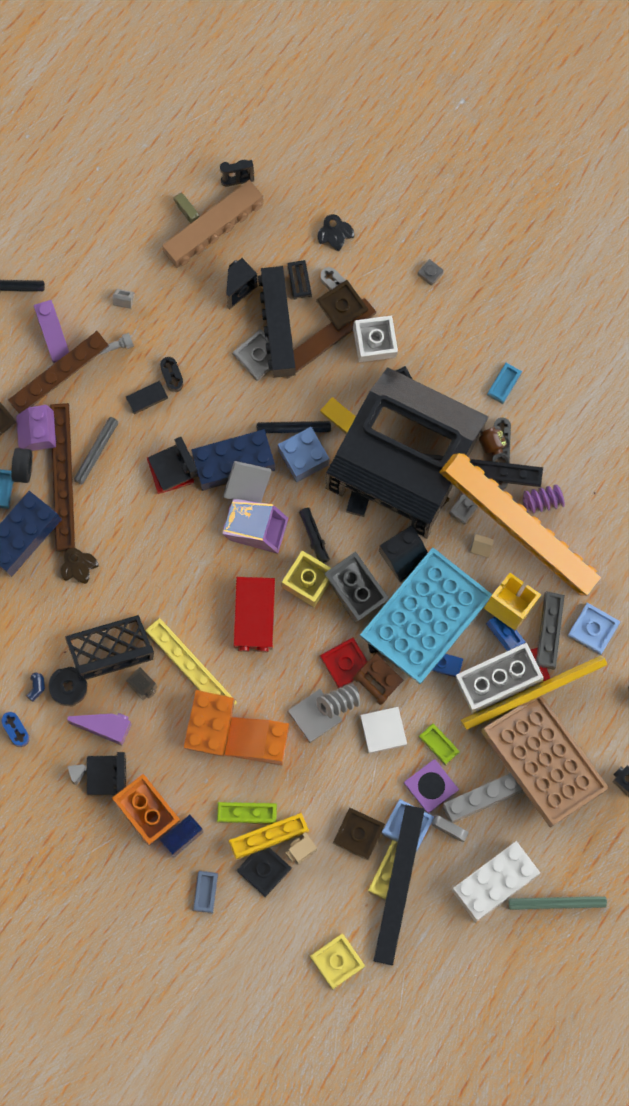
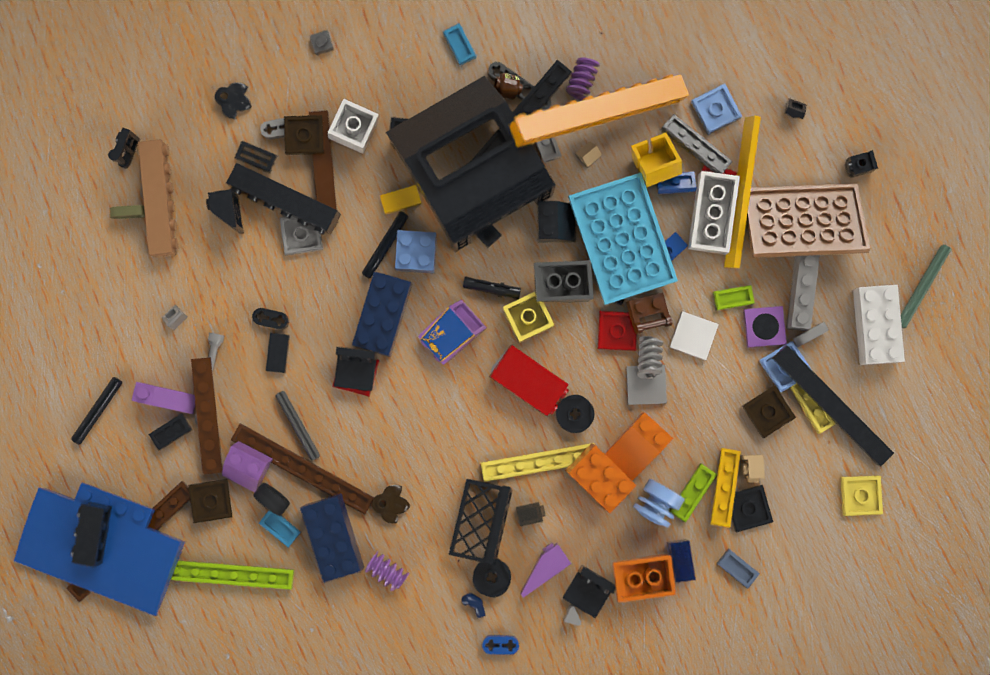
camera: 60 degrees left, 10 degrees up
(18, 594) = (386, 572): none -> medium lavender piece
(27, 353) = (170, 432): none -> black plate
(218, 784) = (658, 503): none -> light blue wheel
(247, 482) = (412, 315): light grey tile -> none
(252, 659) = (583, 421): none -> black plate

